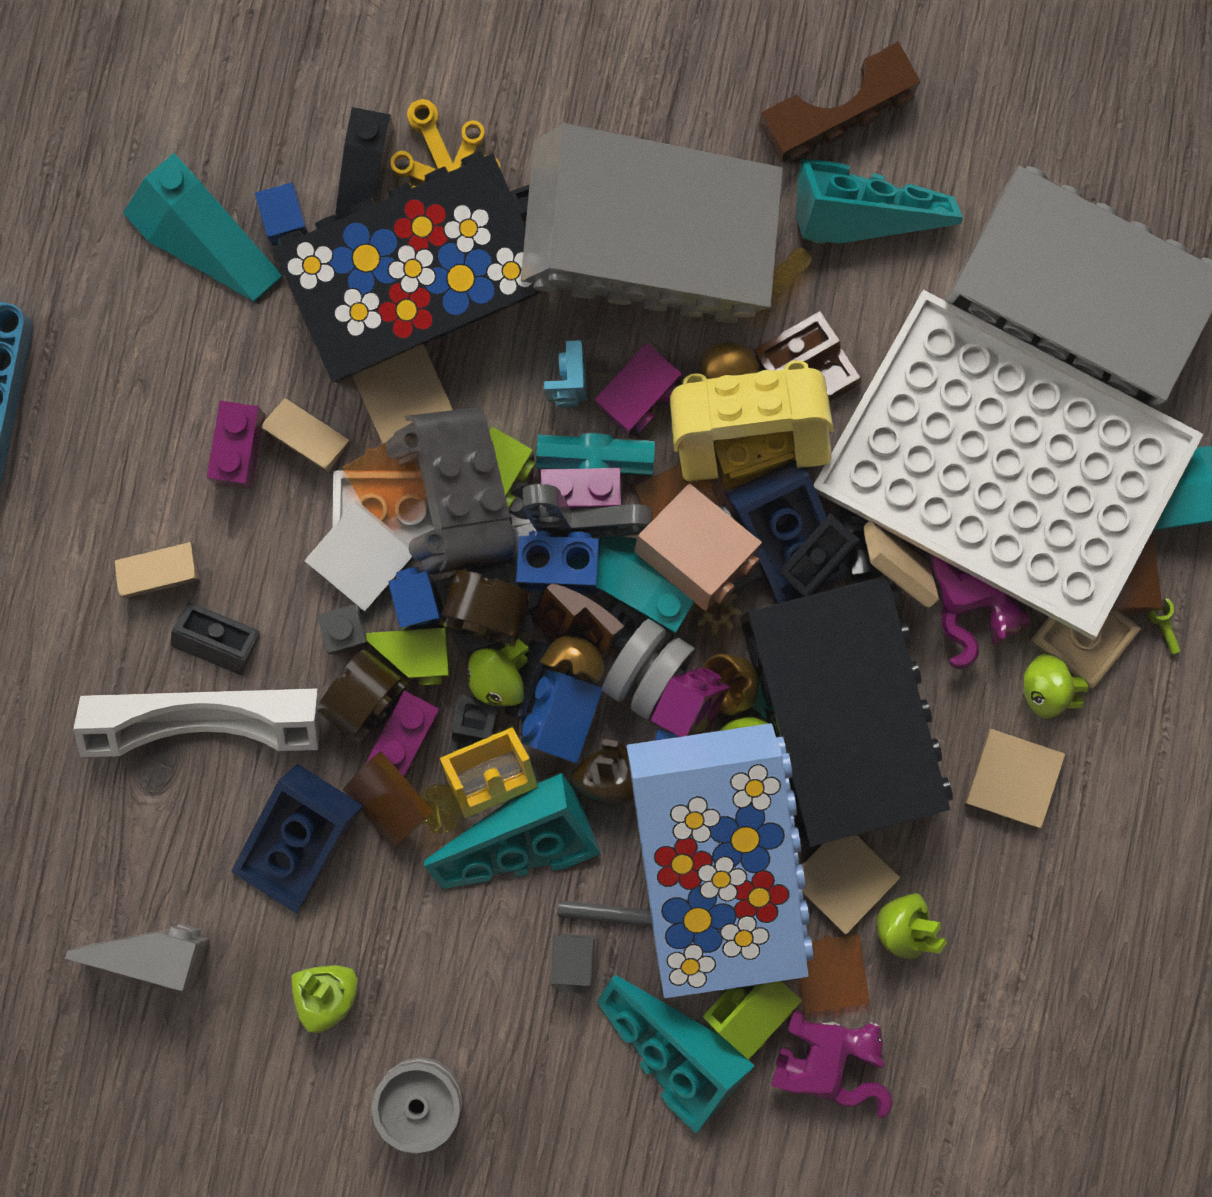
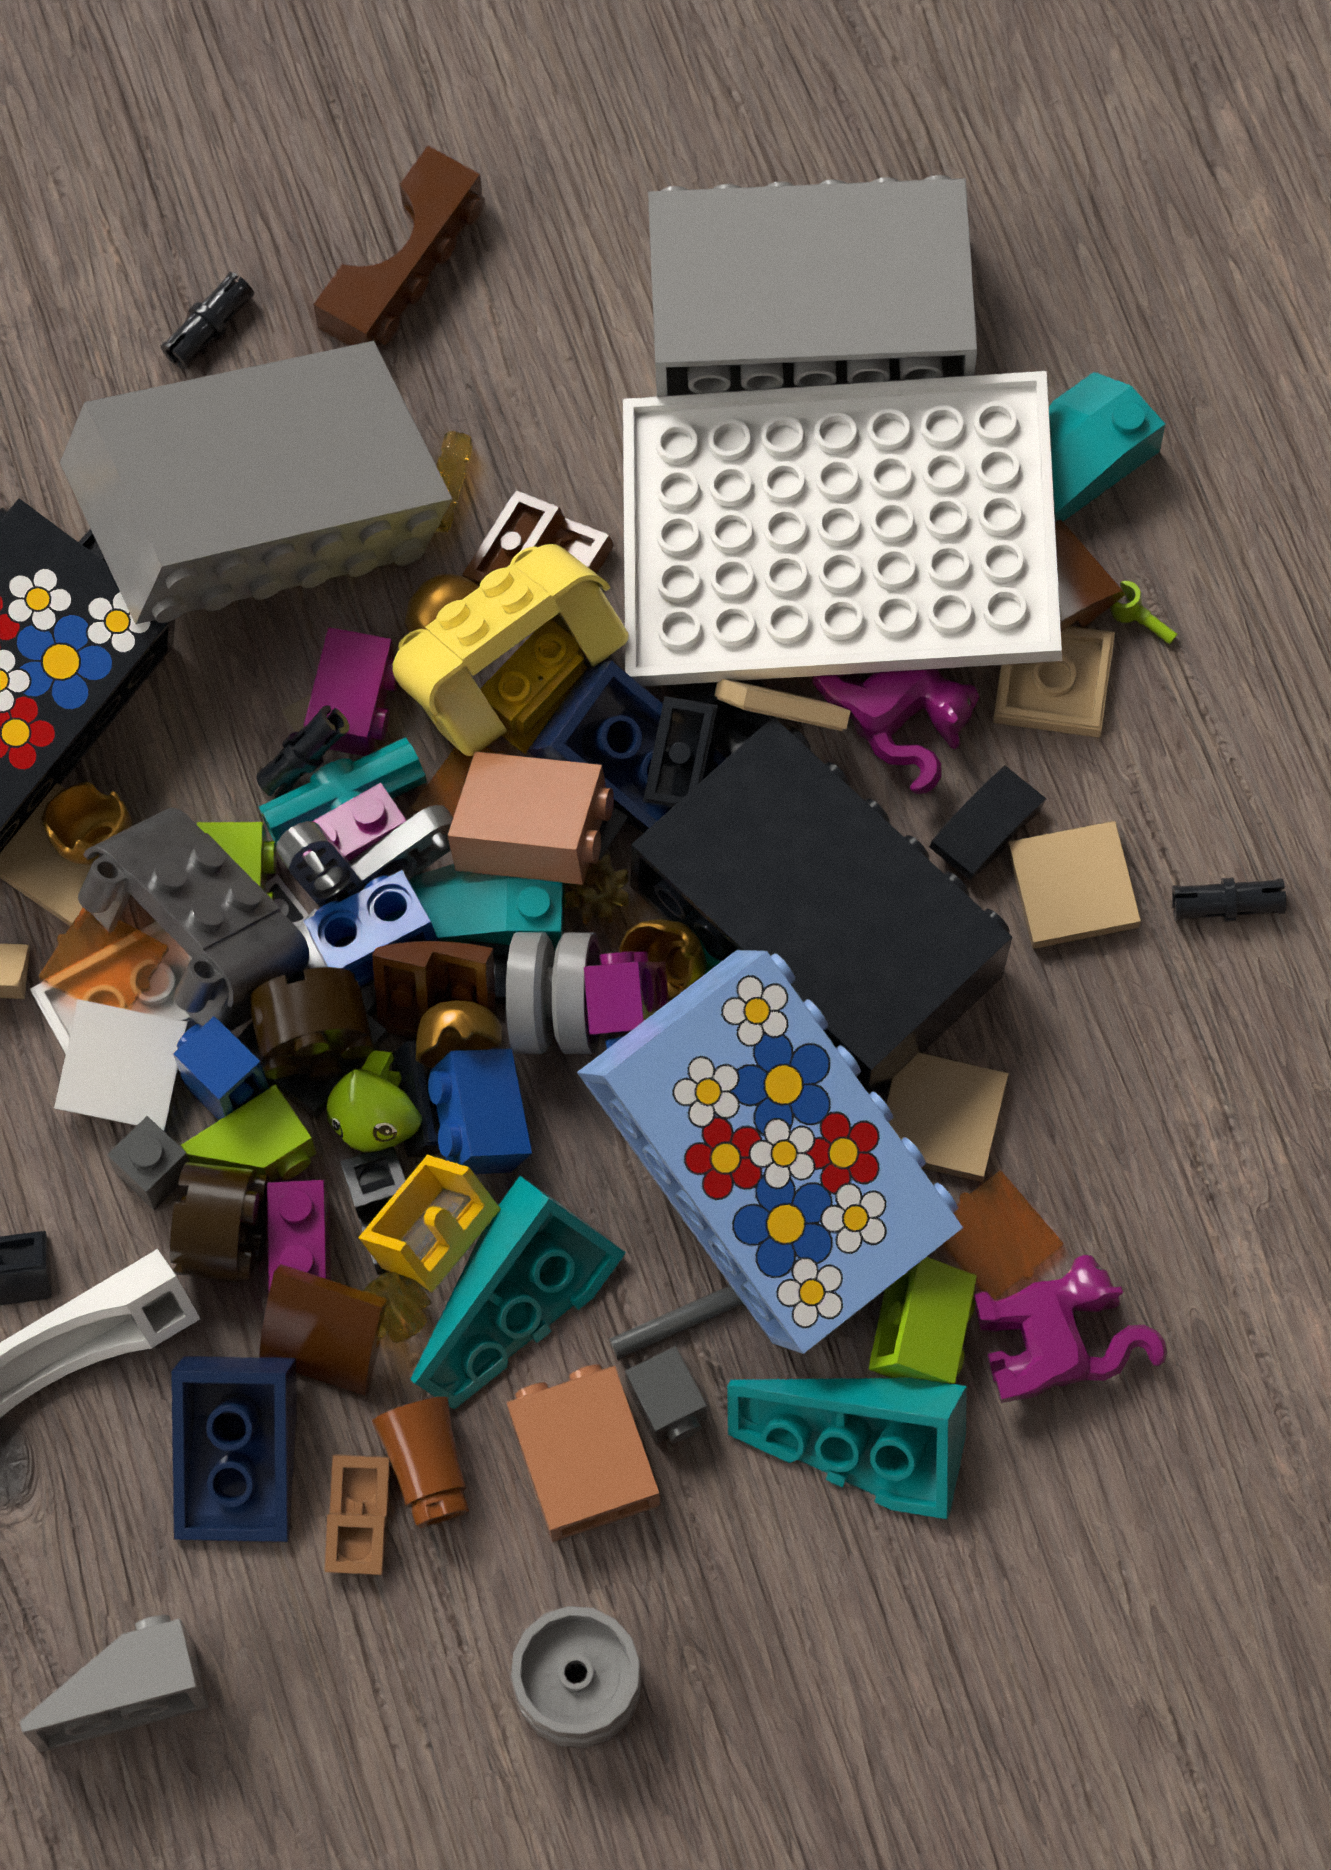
camera: 25 degrees left, 15 degrees down
(323, 995) = (379, 1614): lime piece -> none
(347, 921) = (358, 1514): none -> medium nougat slope
(404, 915) = (424, 1459): none -> dark orange plant
(422, 386) = (82, 819): none -> pearl gold hair
(501, 964) = (583, 1451): none -> nougat brick
(574, 377) = (263, 720): medium azure bracket -> none
(584, 416) = (302, 751): none -> black pin
(605, 775) = (580, 1150): dark brown piece -> none
(691, 79) = (207, 320): none -> black pin
(854, 208) = (480, 360): teal wedge -> none
(907, 928) = (1049, 1124): lime piece -> none
(984, 708) = (987, 822): none -> black slope
(1051, 688) = (1050, 753): lime piece -> none
(1105, 845) = (1228, 899): none -> black pin

